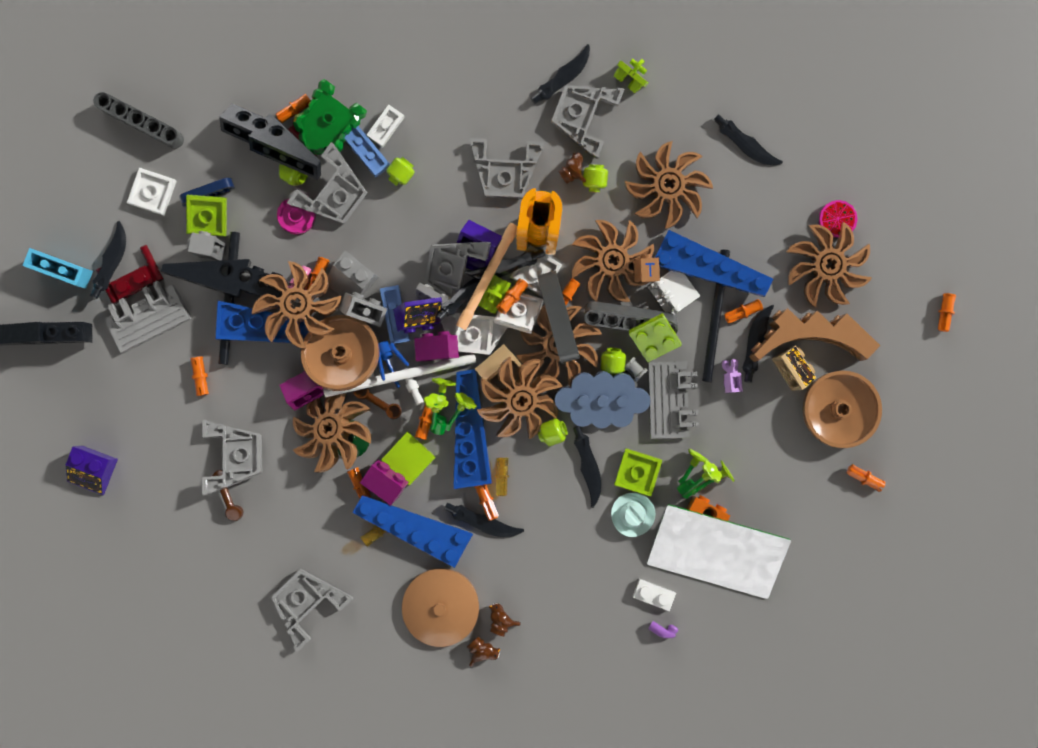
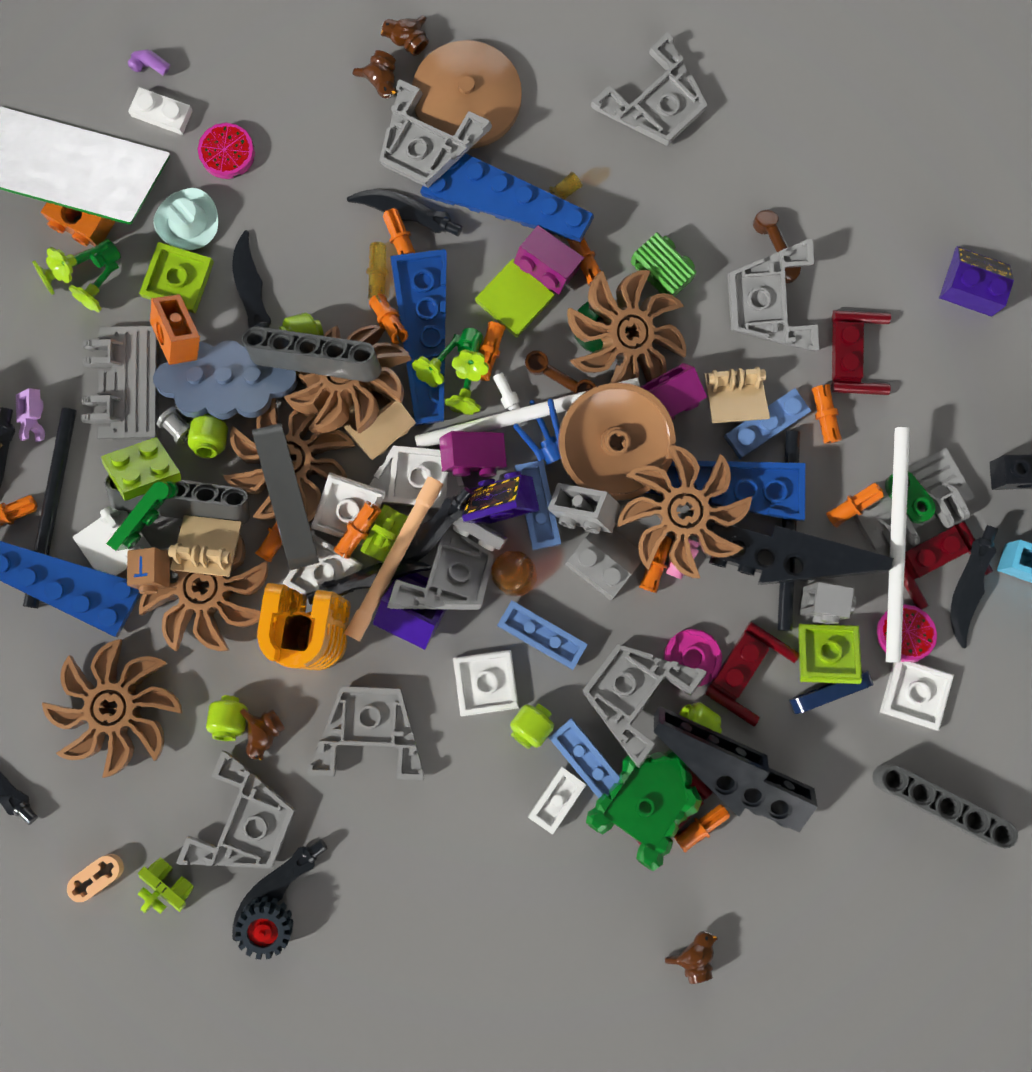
camera: 170 degrees right, 5 degrees down
(146, 317) = (915, 495): none -> green plate
(155, 229) = (918, 634): none -> tile
(157, 284) = (897, 544): none -> white piece
(181, 419) = (849, 352): none -> dark red plate
(183, 312) = (855, 504): none -> orange axle
(240, 370) = (754, 433): none -> medium blue plate
(259, 388) = (737, 395): none -> tan hinge
(263, 210) = (741, 666): none -> dark red plate
(300, 29) = (696, 958): none -> reddish brown animal
(304, 478) = (667, 267): none -> bright green brick
(393, 229) = (542, 635): none -> medium blue plate
(411, 270) = (514, 573): none -> clear orange hair
(430, 200) = (485, 683): none -> white tile
(472, 562) = (420, 149): none -> light grey wing
(492, 439) = (388, 319): none -> orange pin
(548, 417) = (312, 353): none -> dark grey beam
(568, 50) = (264, 928): none -> black wheel
(607, 565) = (226, 150): none -> tile
(610, 286) = (205, 546): none -> tan hinge
(636, 432) = (174, 329): none -> orange brick
(648, 303) = (143, 514): none -> green plate
(672, 78) = (91, 872): none -> light nougat beam

